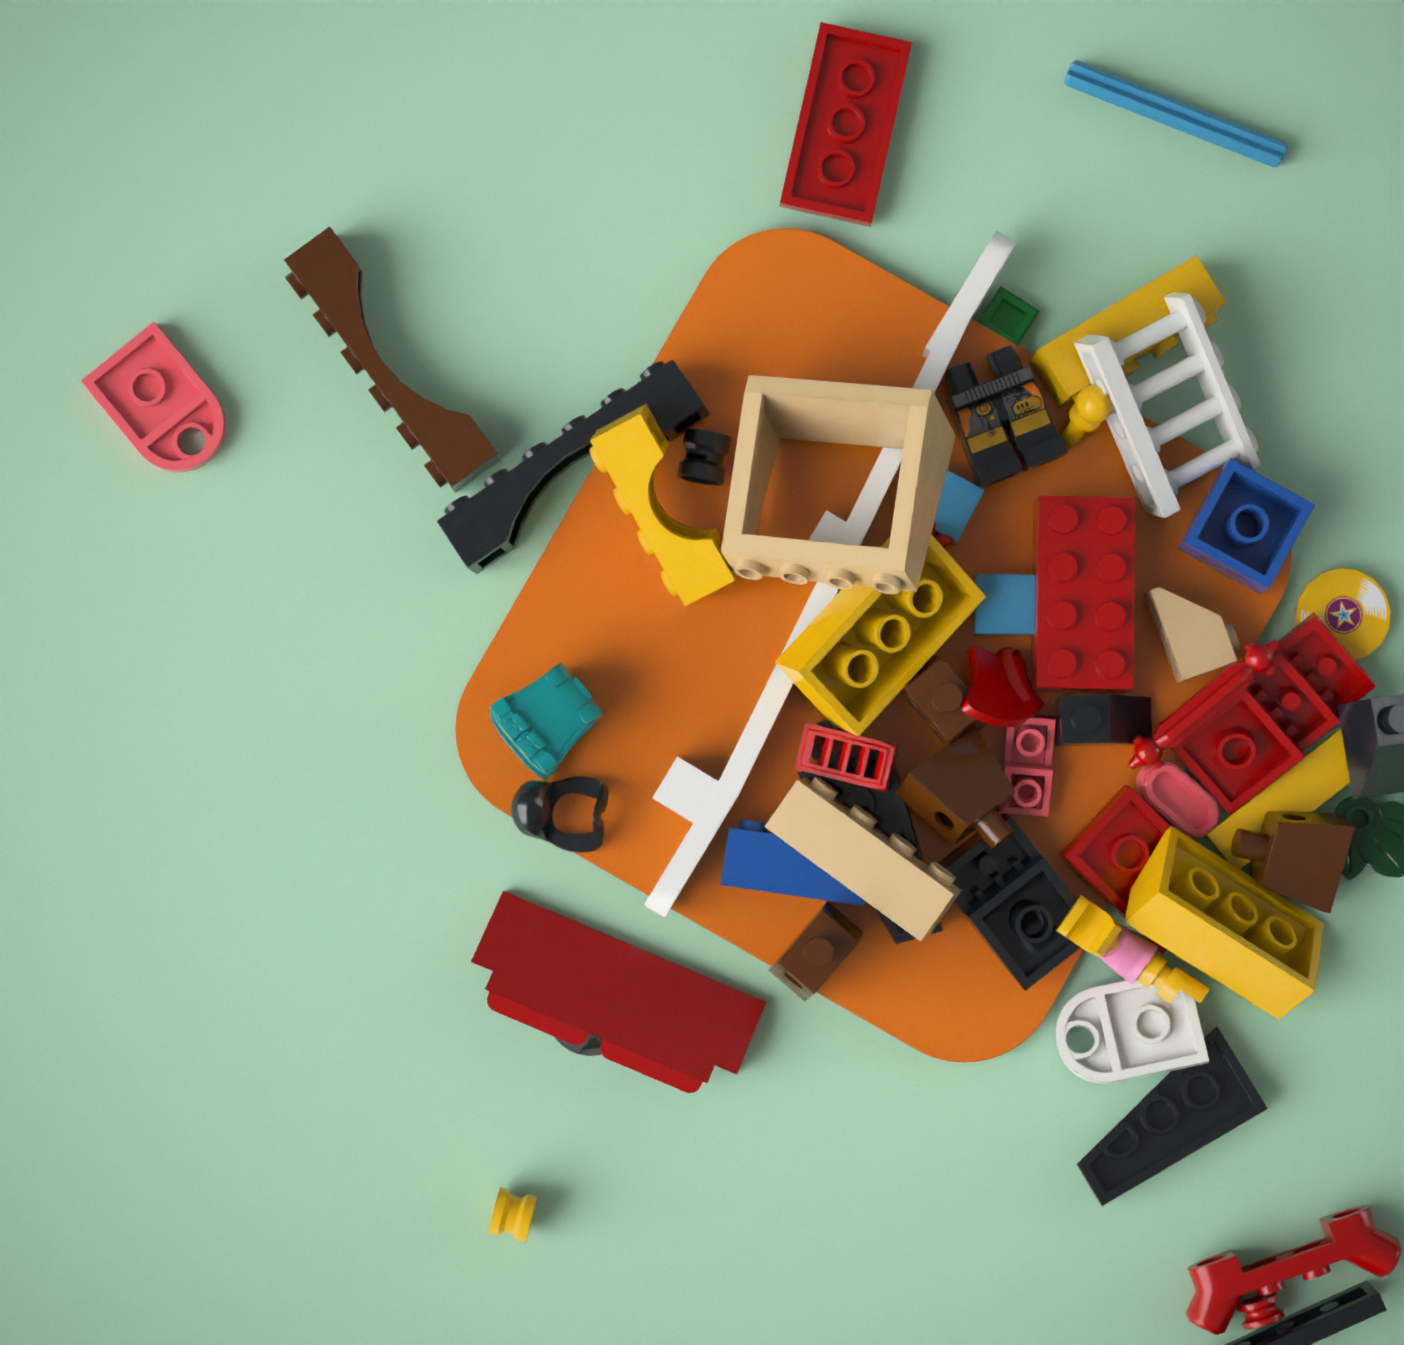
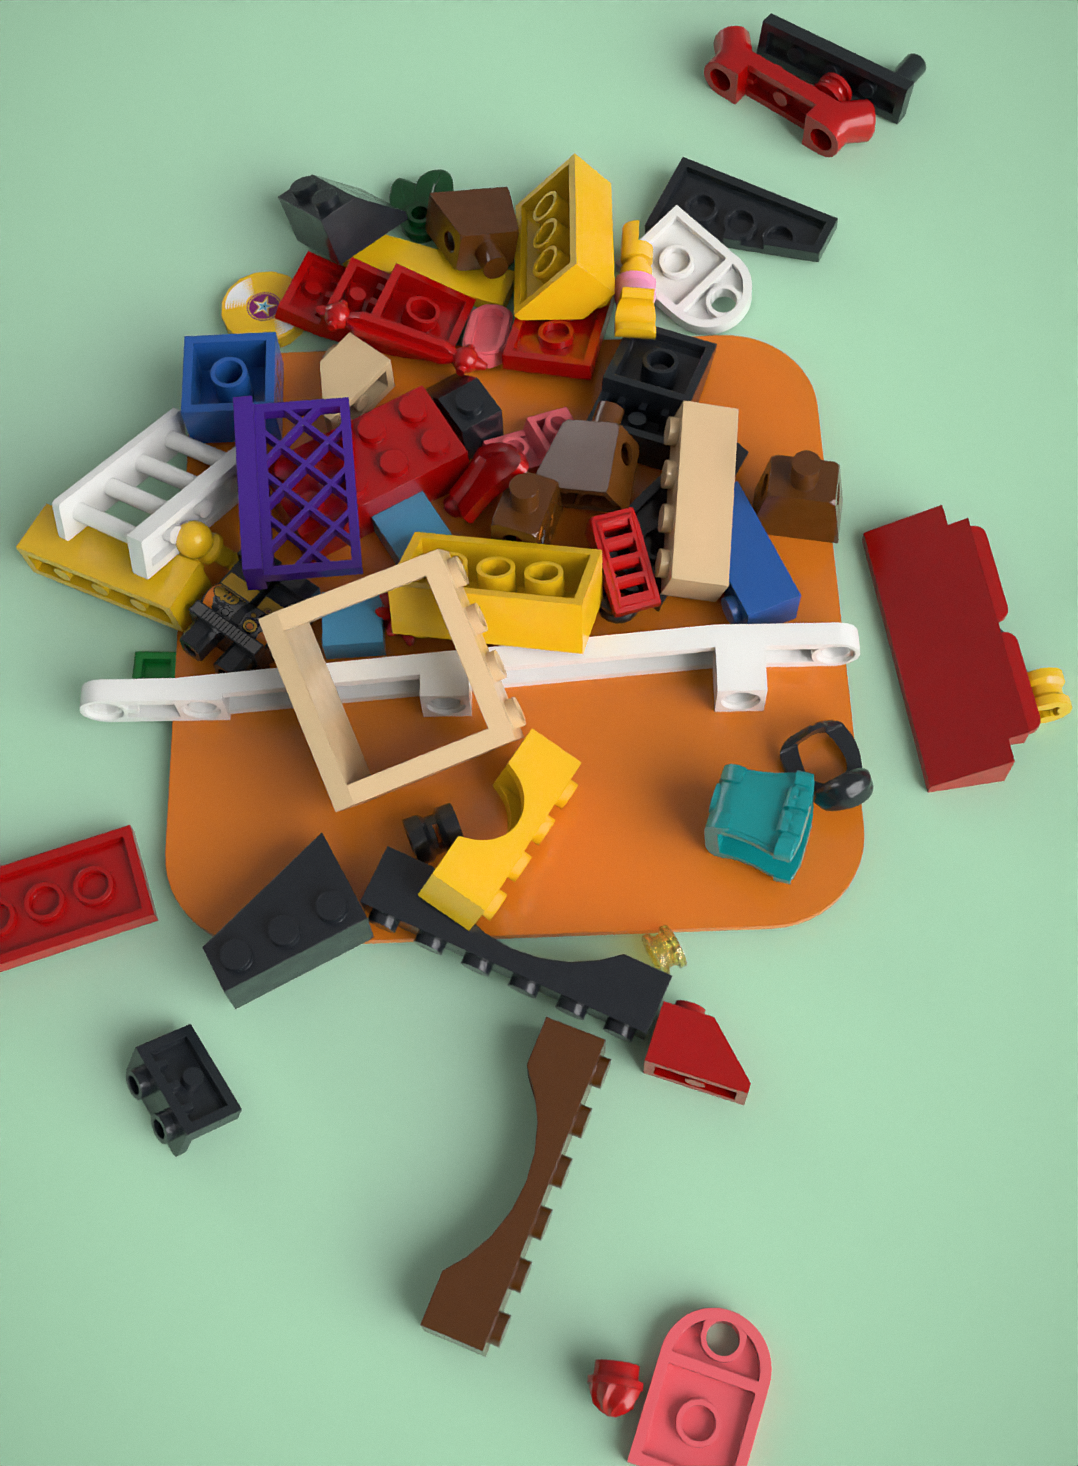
camera: 120 degrees left, 20 degrees down
(207, 344) = (614, 1386): none -> red plate
(405, 554) = (695, 1053): none -> red slope
(500, 583) = (664, 950): none -> clear yellow bush
(517, 1041) = (1048, 693): none -> yellow wheel
(623, 152) = (180, 1088): none -> black bracket
(694, 303) = (289, 927): none -> black wedge
(1097, 474) = (255, 483): none -> dark purple fence

